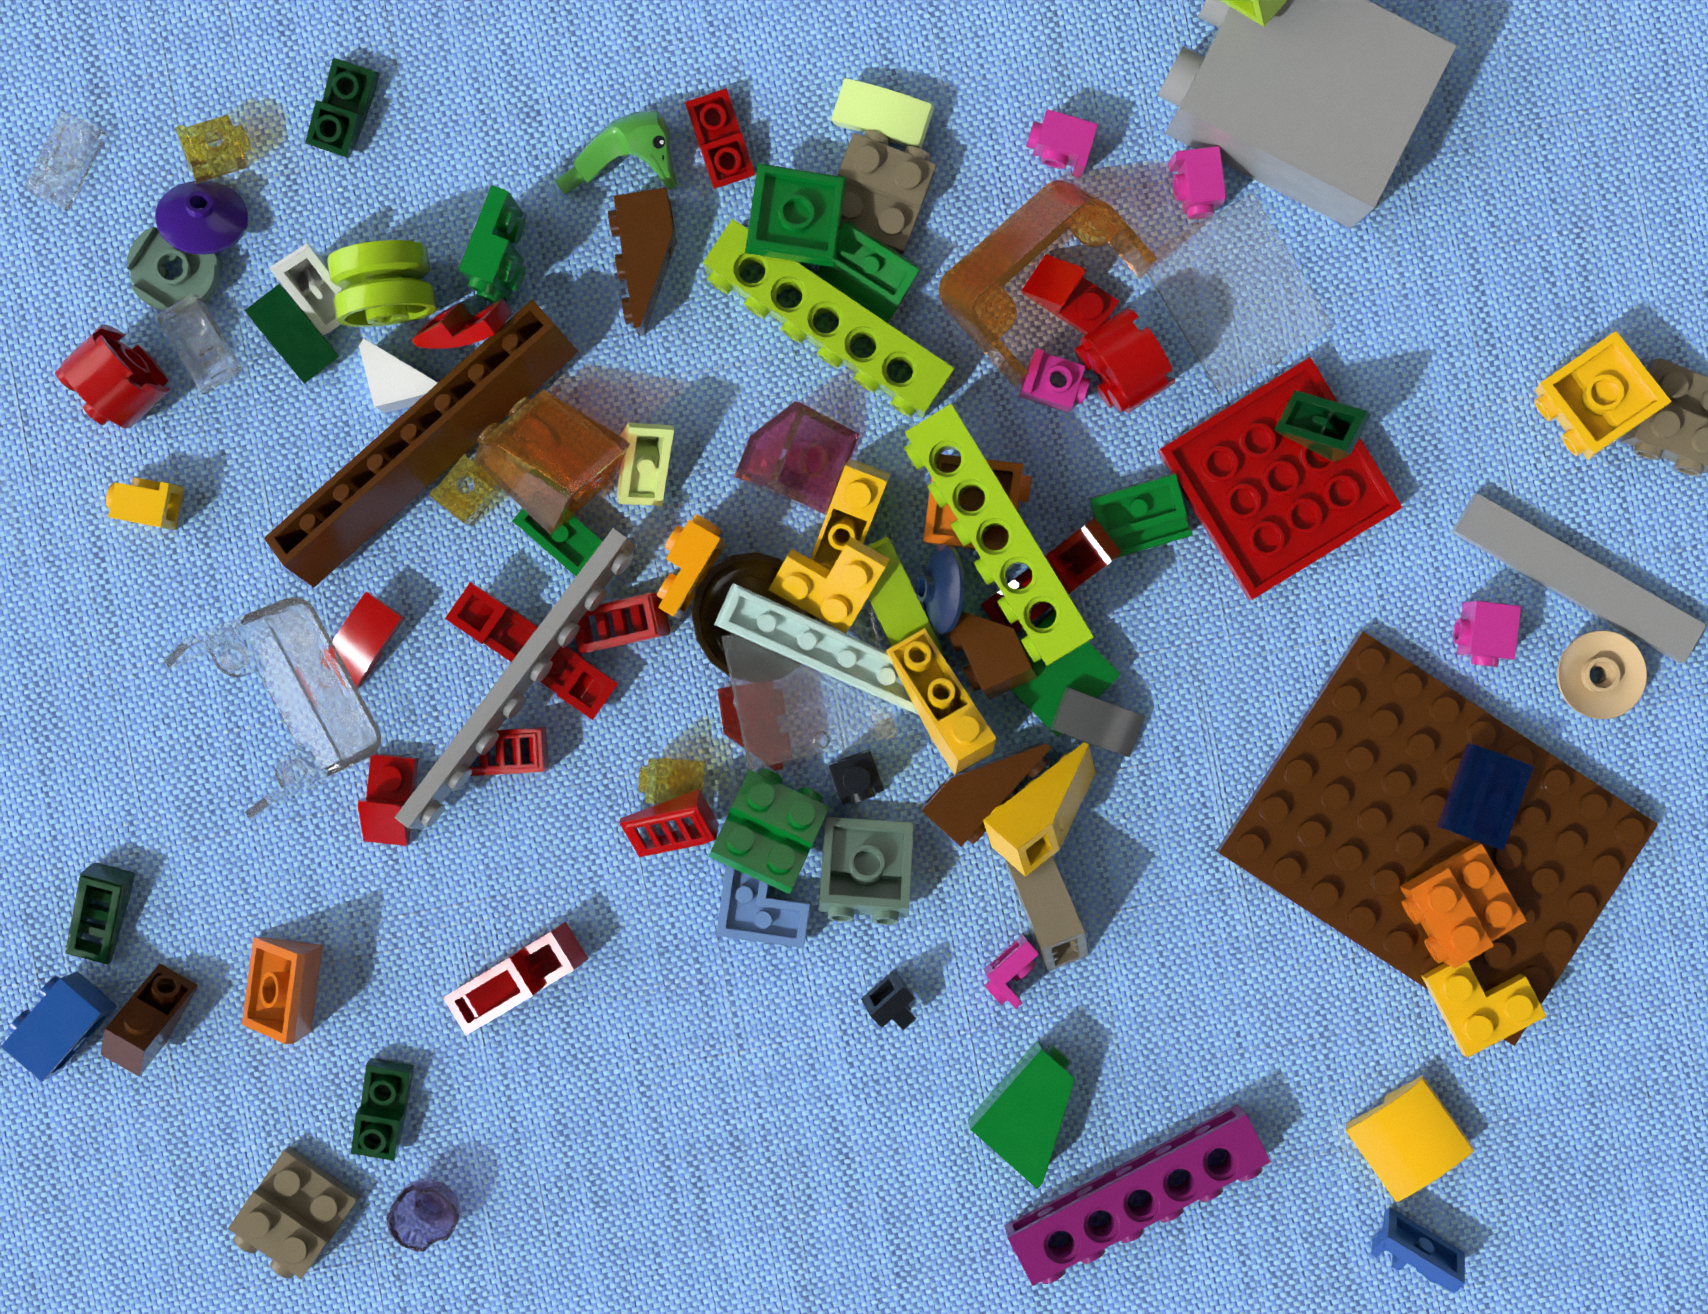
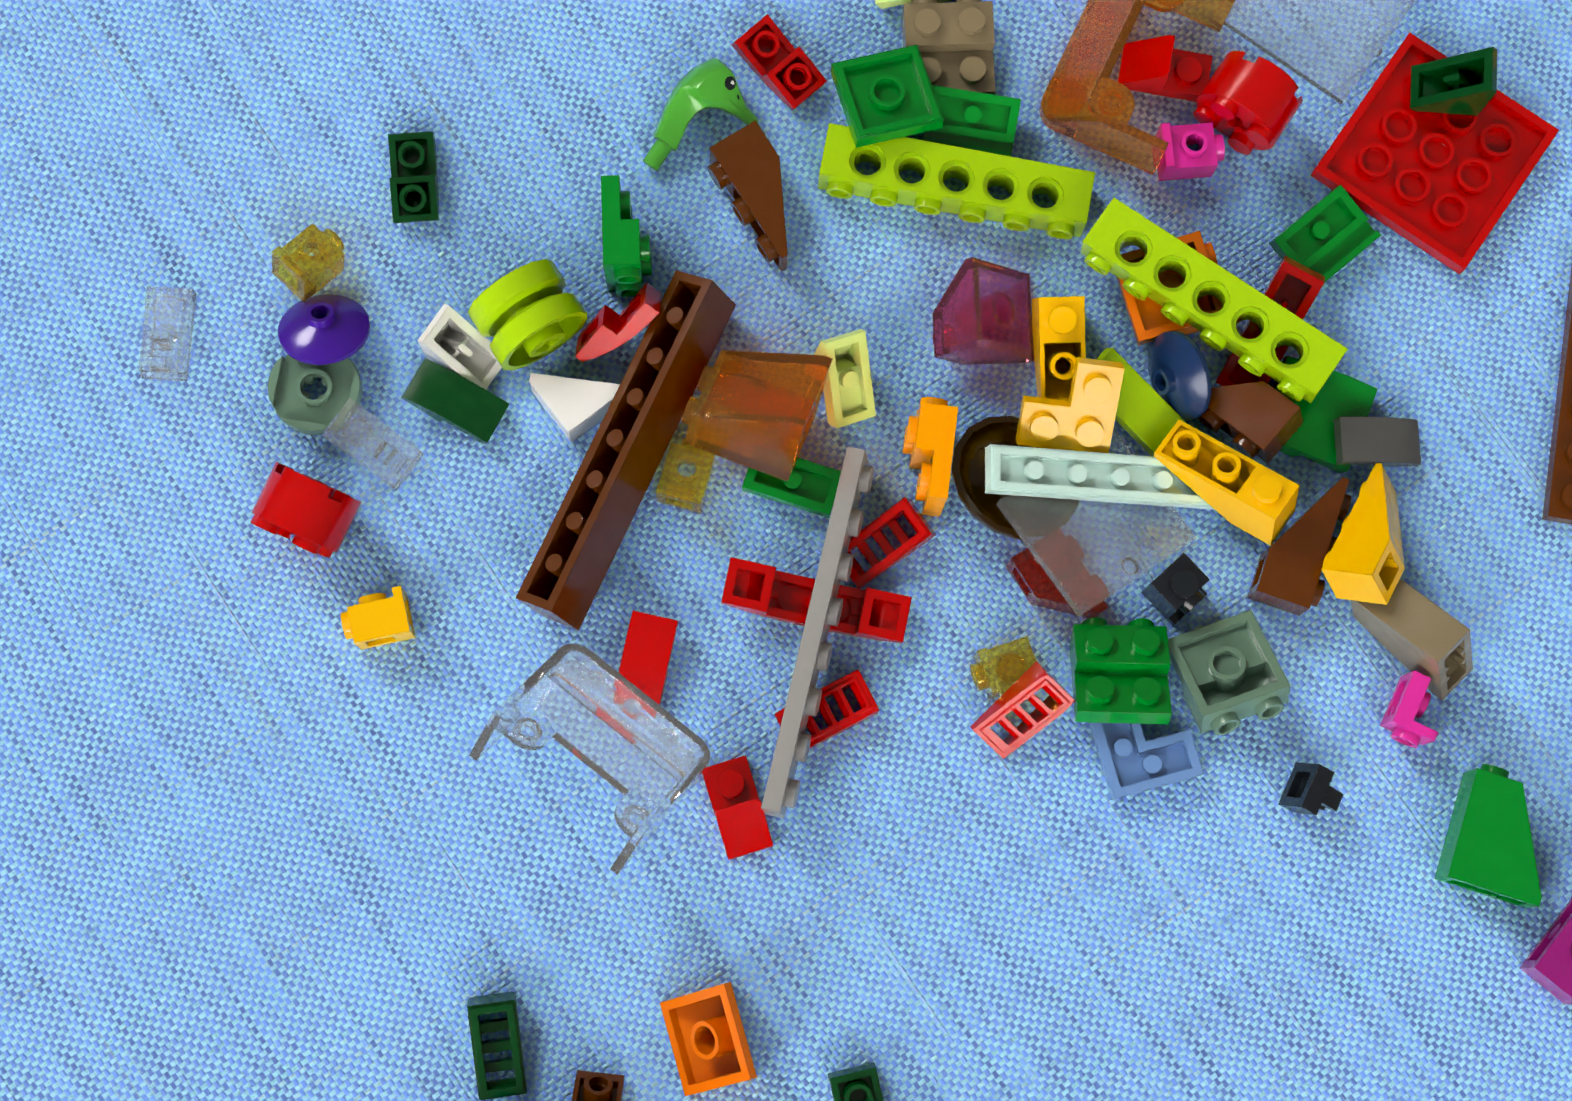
camera: 30 degrees left, 10 degrees down
(516, 978) = (937, 928): red slope -> none

